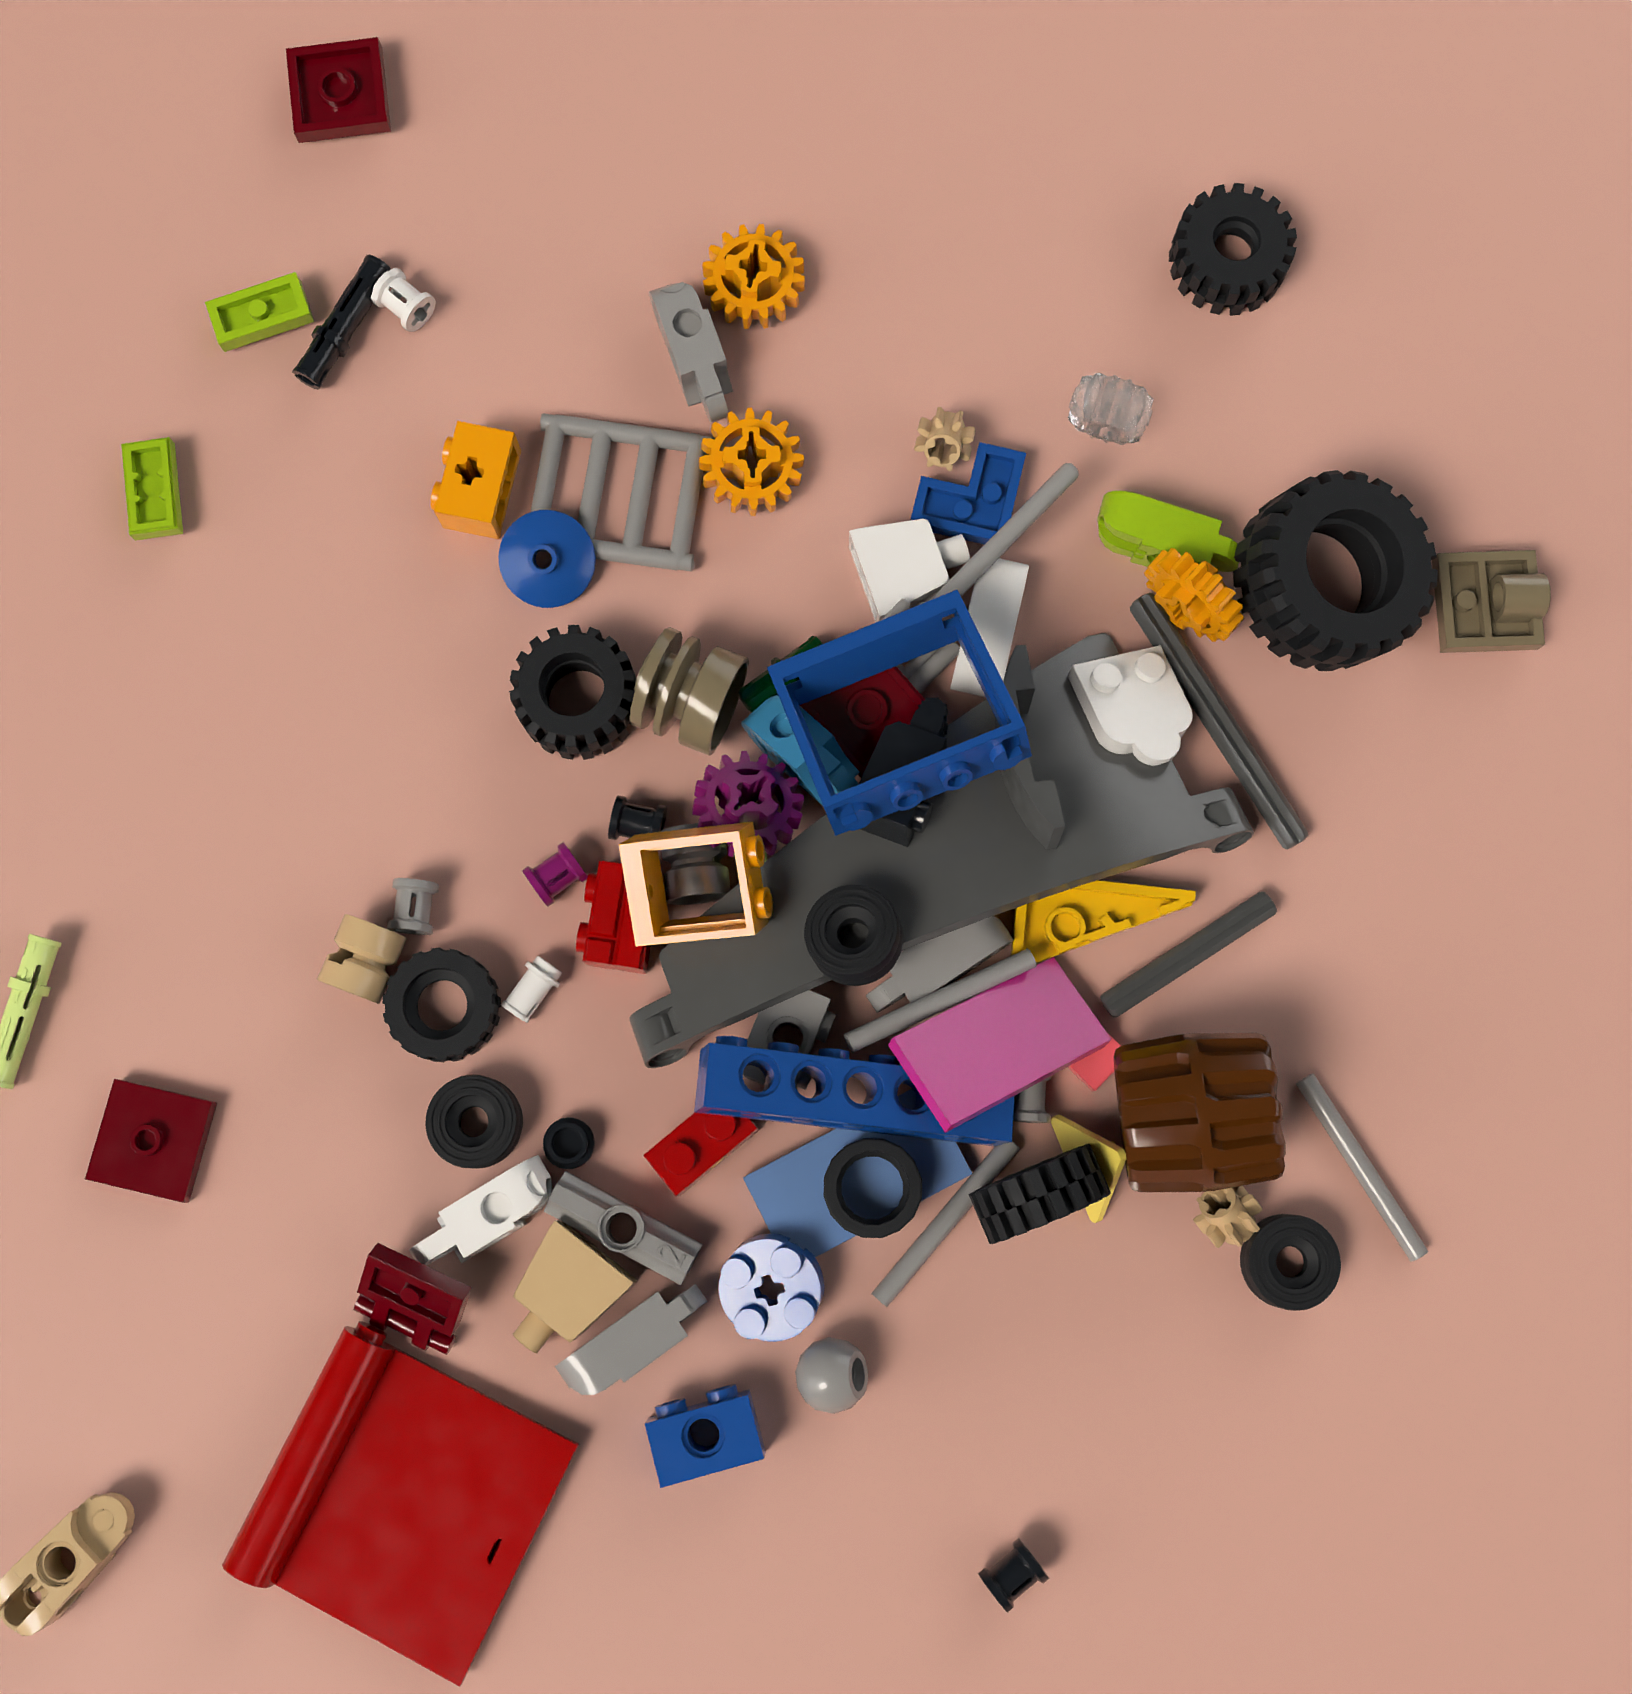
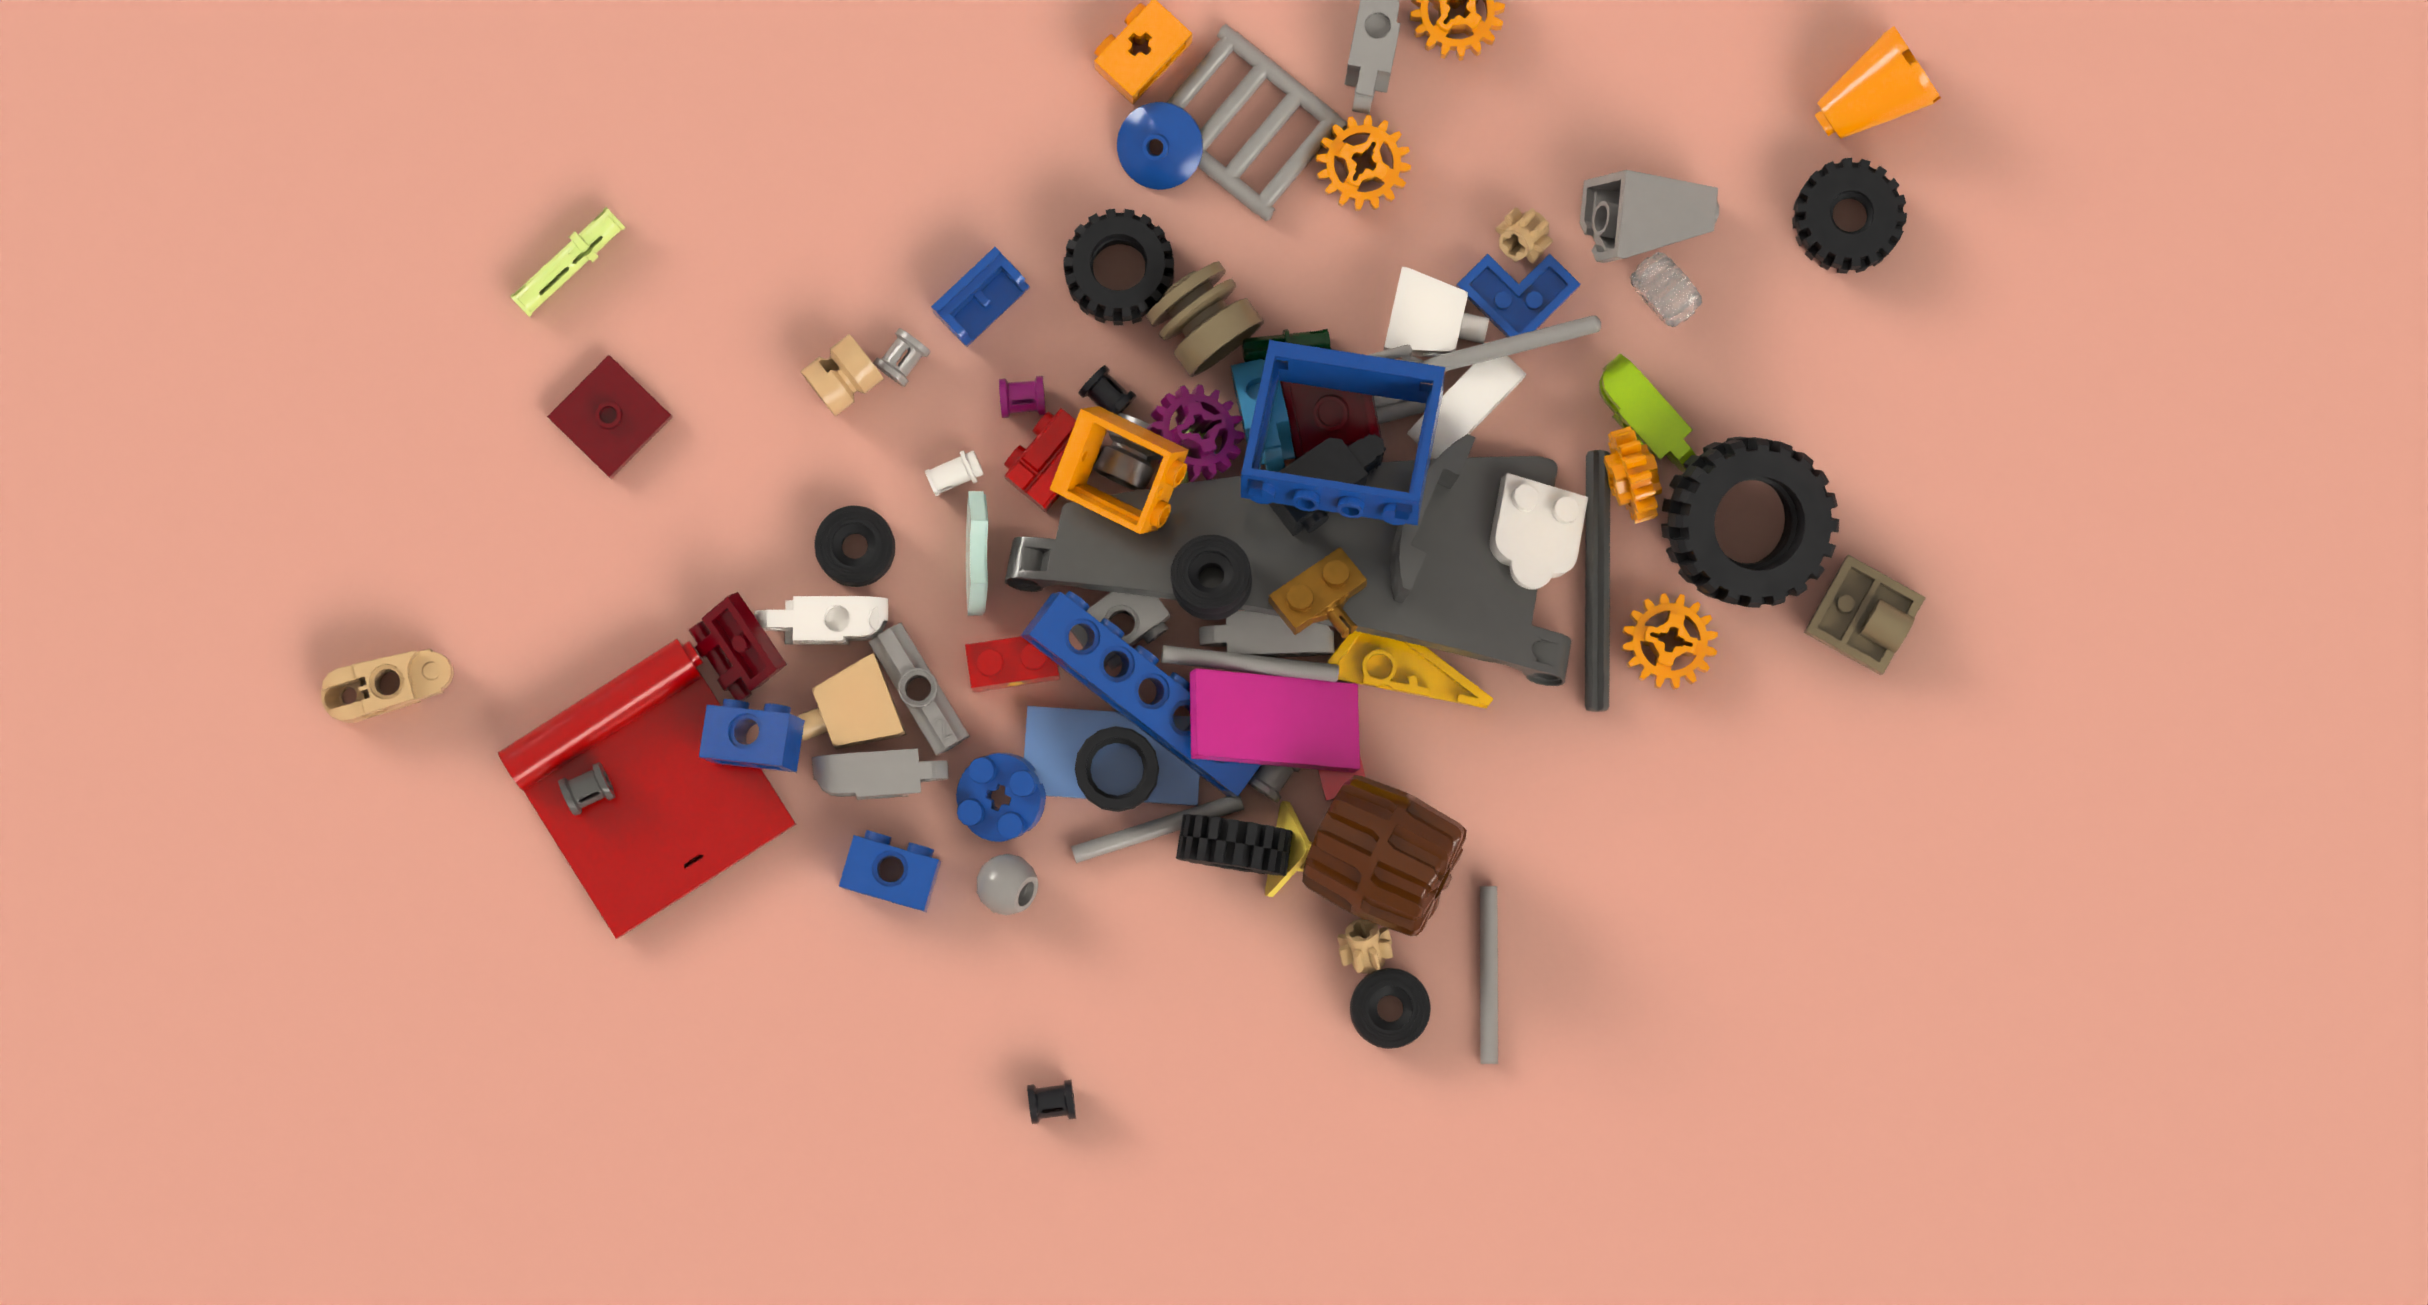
camera: 30 degrees right, 5 degrees up
(337, 1545) = (586, 788): none -> dark grey bush
(403, 997) = (869, 413): black tyre -> none
(448, 1391) = (776, 743): none -> blue brick
(456, 802) = (980, 297): none -> blue hinge
(568, 1143) = (914, 604): black plate -> none
(601, 1055) = (976, 553): none -> light aqua tile
(973, 887) = (1320, 594): none -> pearl gold plate
(1041, 351) = (1644, 212): none -> light grey slope
(1187, 116) = (1876, 89): none -> light orange cone
(1188, 954) = (1461, 743): dark grey axle -> none
(1328, 754) = (1674, 622): none -> light orange gear

